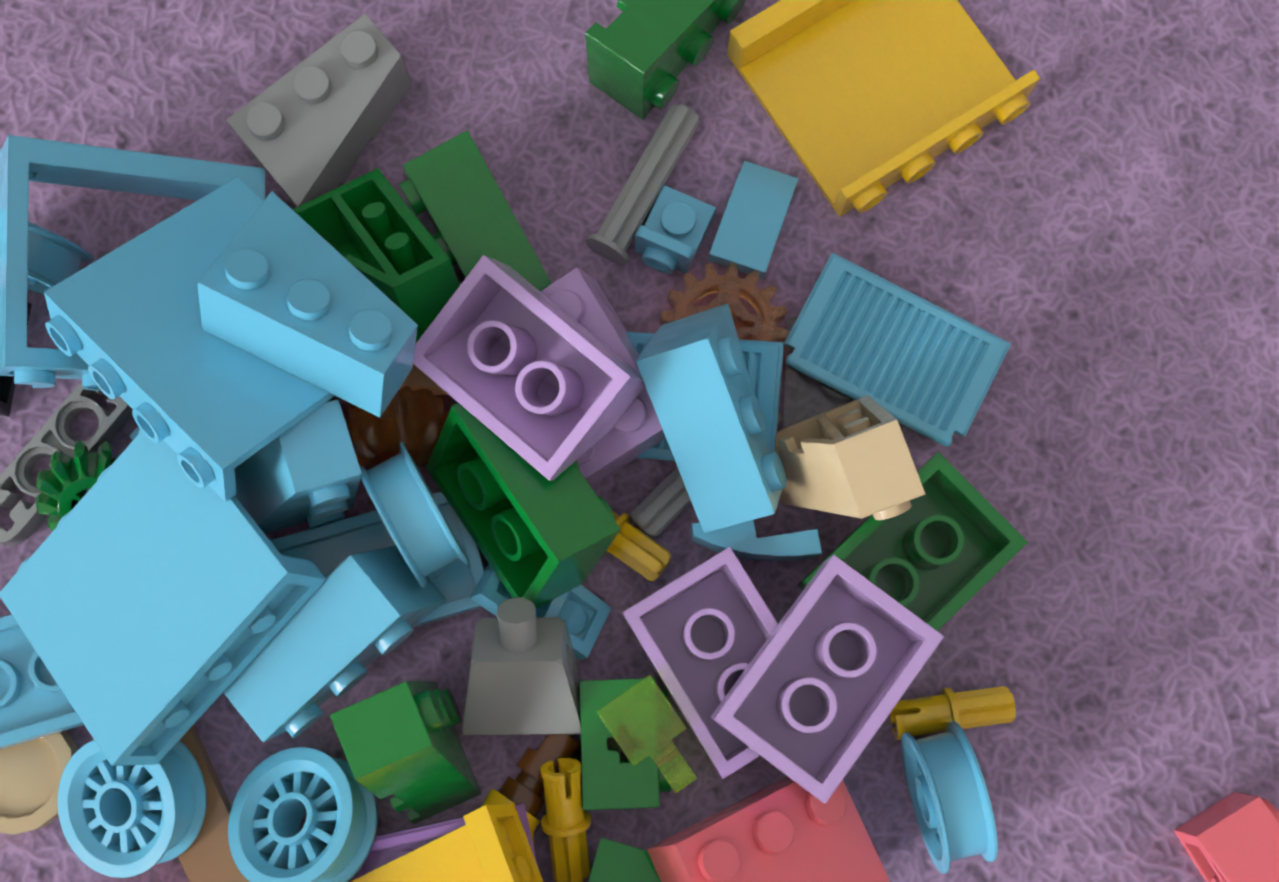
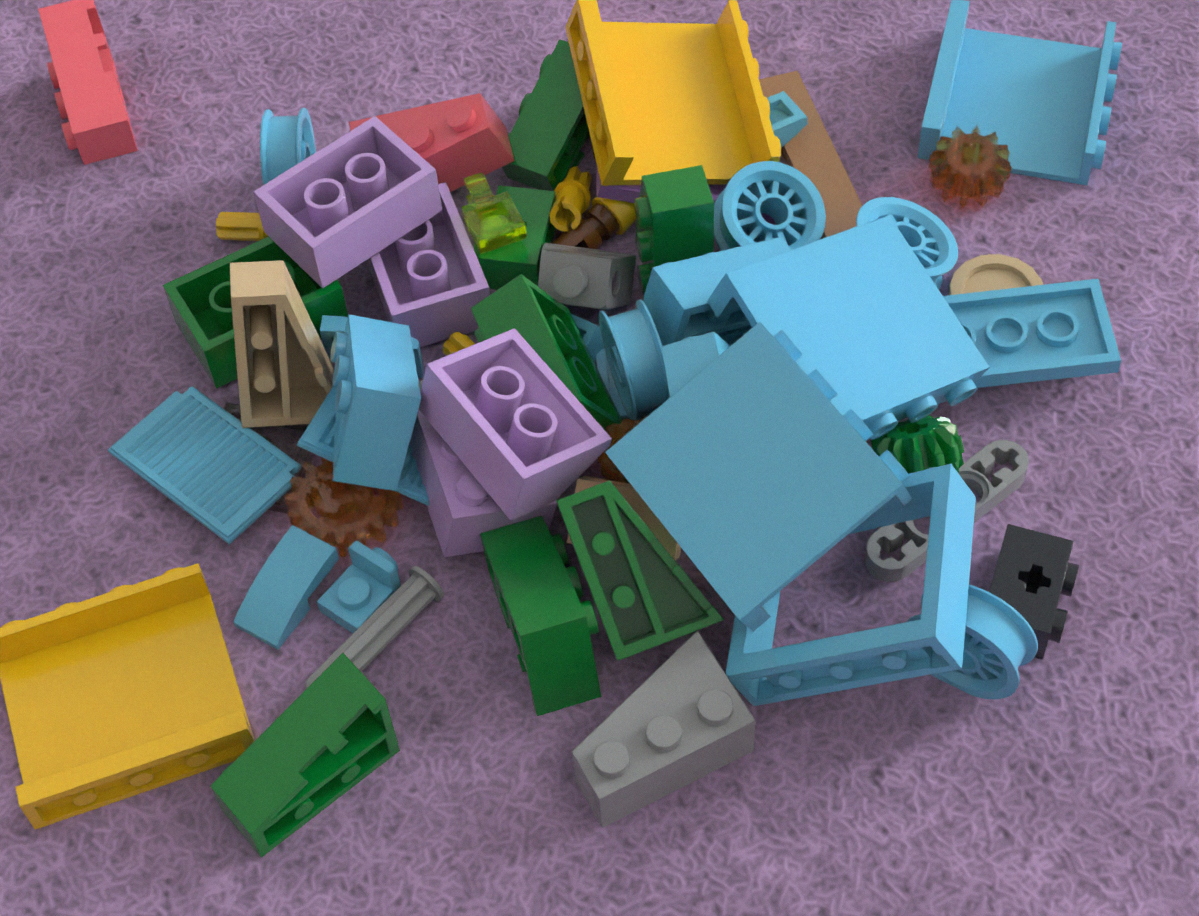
camera: 165 degrees left, 25 degrees down
(307, 310) = (683, 444): medium azure wedge -> none

